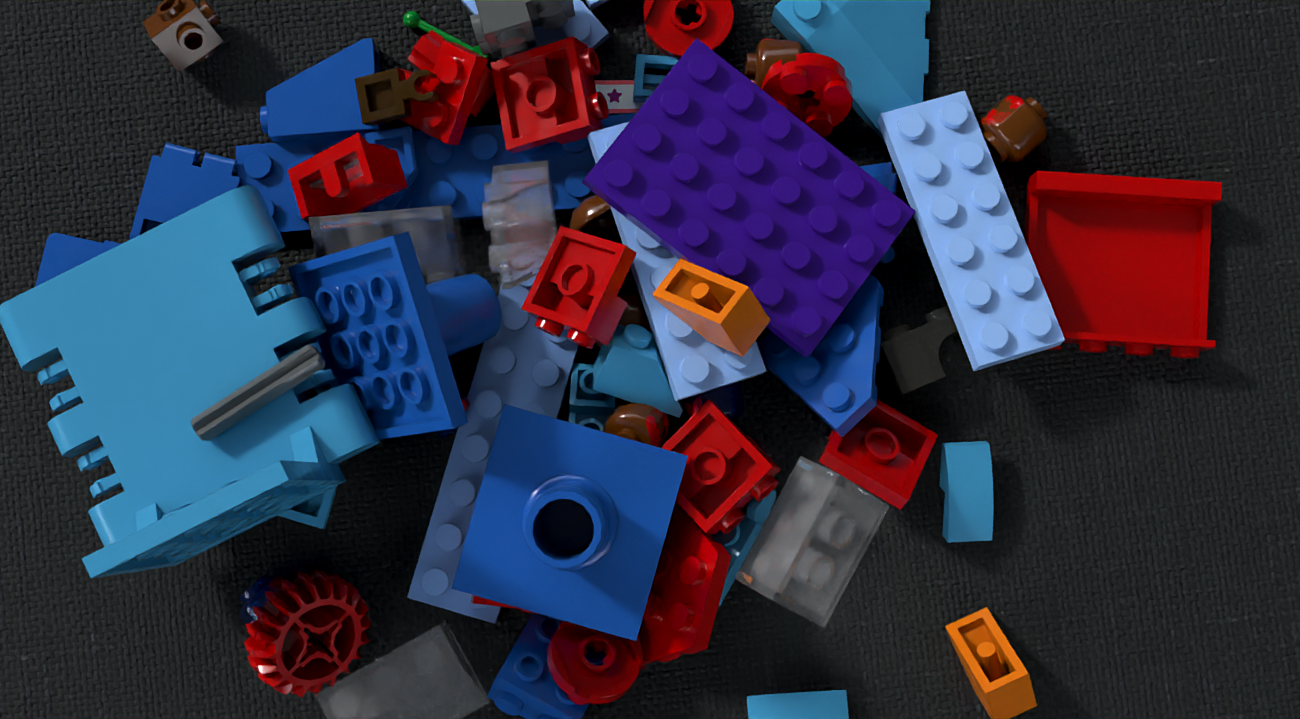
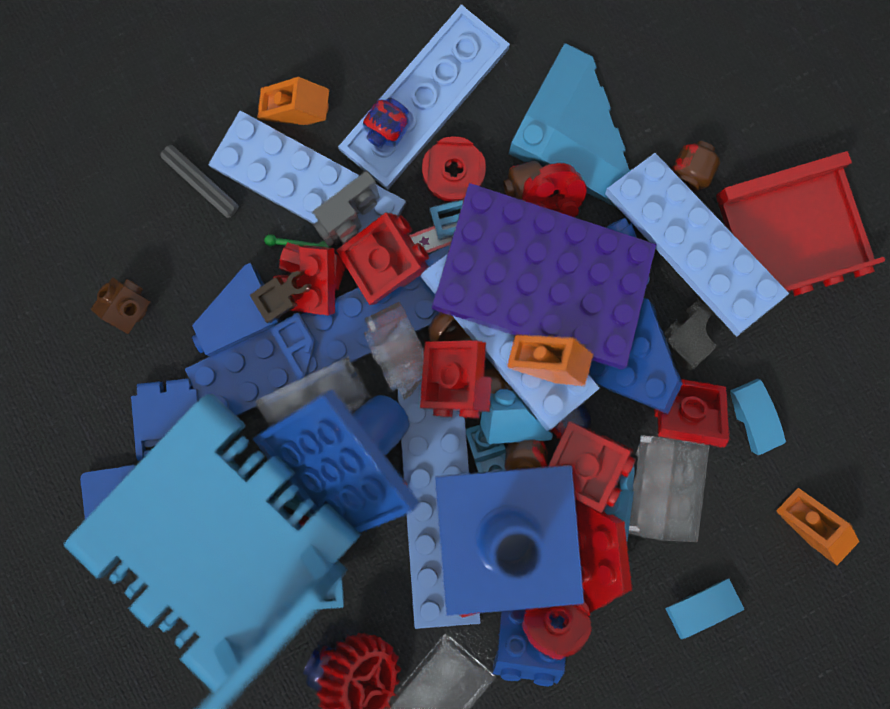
camera: 25 degrees left, 0 degrees up
(257, 393) = (267, 536): dark grey axle -> none
(346, 178) = (269, 364): red window -> none

